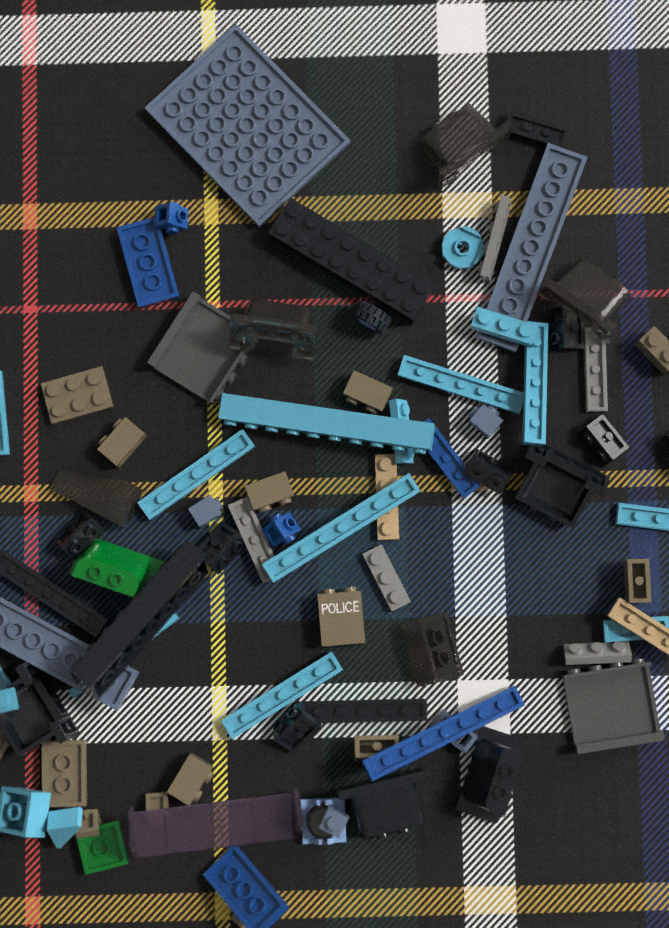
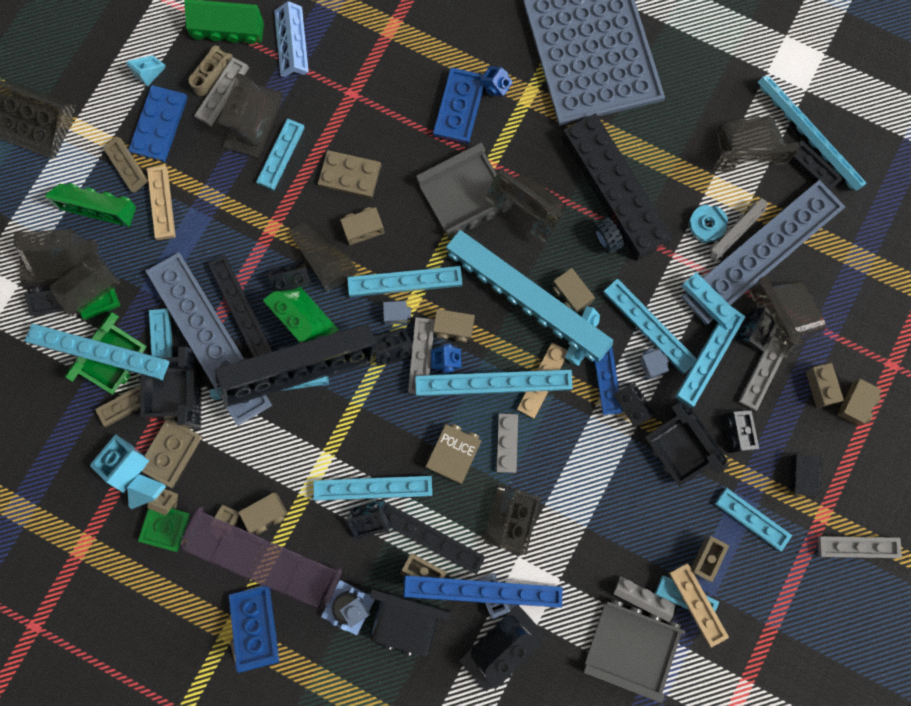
camera: 25 degrees right, 5 degrees down
(521, 99) = (815, 137): none -> medium azure plate

